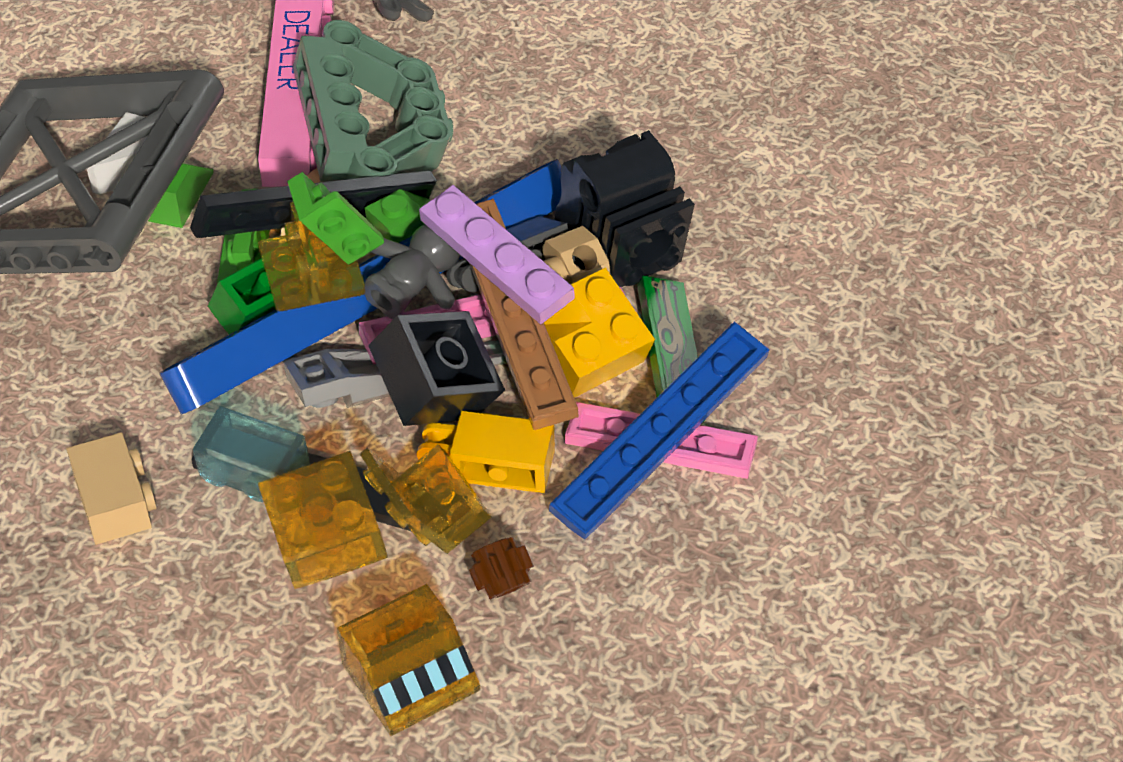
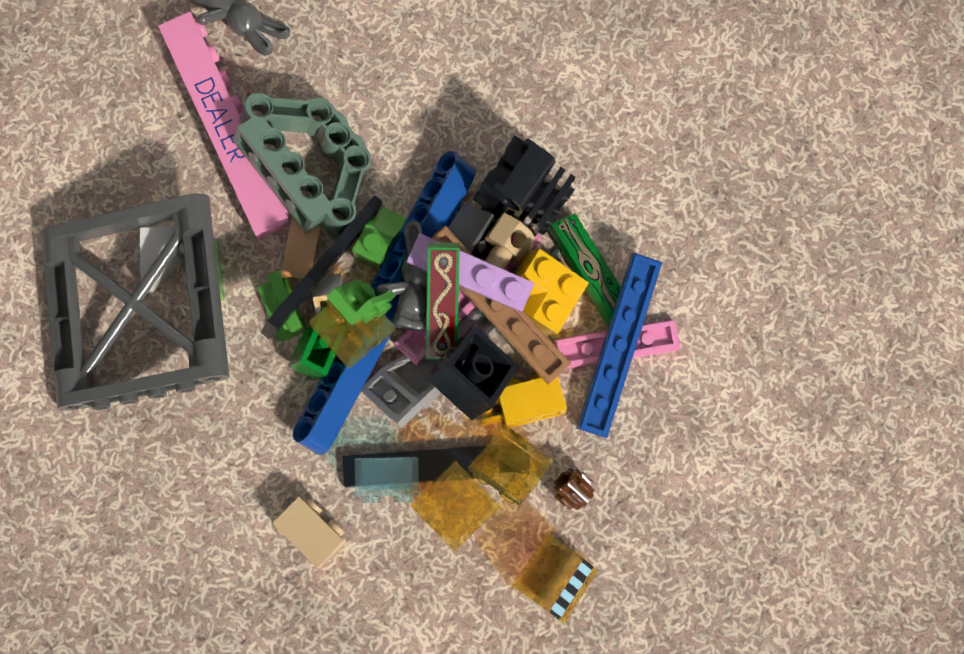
camera: 25 degrees left, 30 degrees up
(446, 247) = (442, 298): none -> tile

